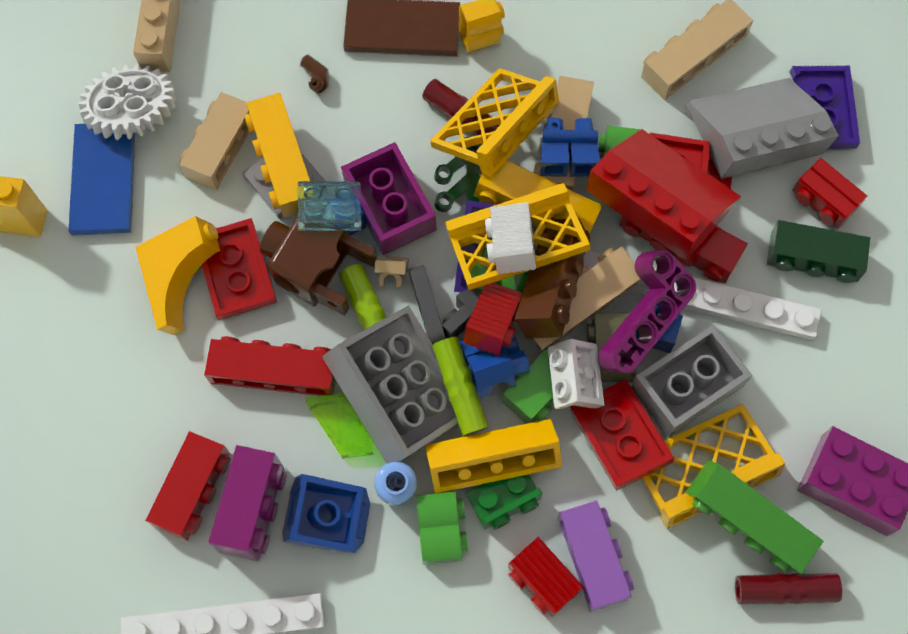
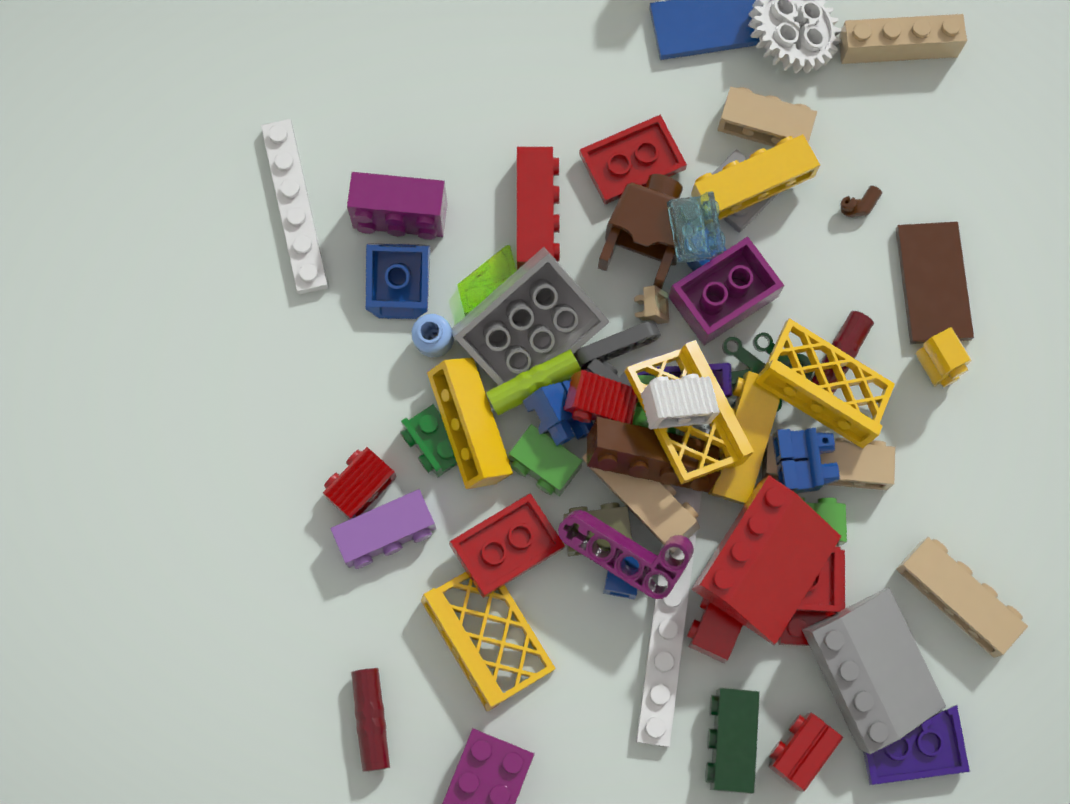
camera: 80 degrees right, 5 degrees up
(170, 264) = (622, 98): yellow arch -> none
(189, 486) = (412, 153): red brick -> none
(362, 295) = (618, 282): lime axle -> none
(439, 527) = (396, 383): bright green brick -> none
(575, 374) = (556, 491): white bracket -> none
(690, 380) = (568, 608): light grey brick -> none
(754, 517) = (431, 675): bright green brick -> none

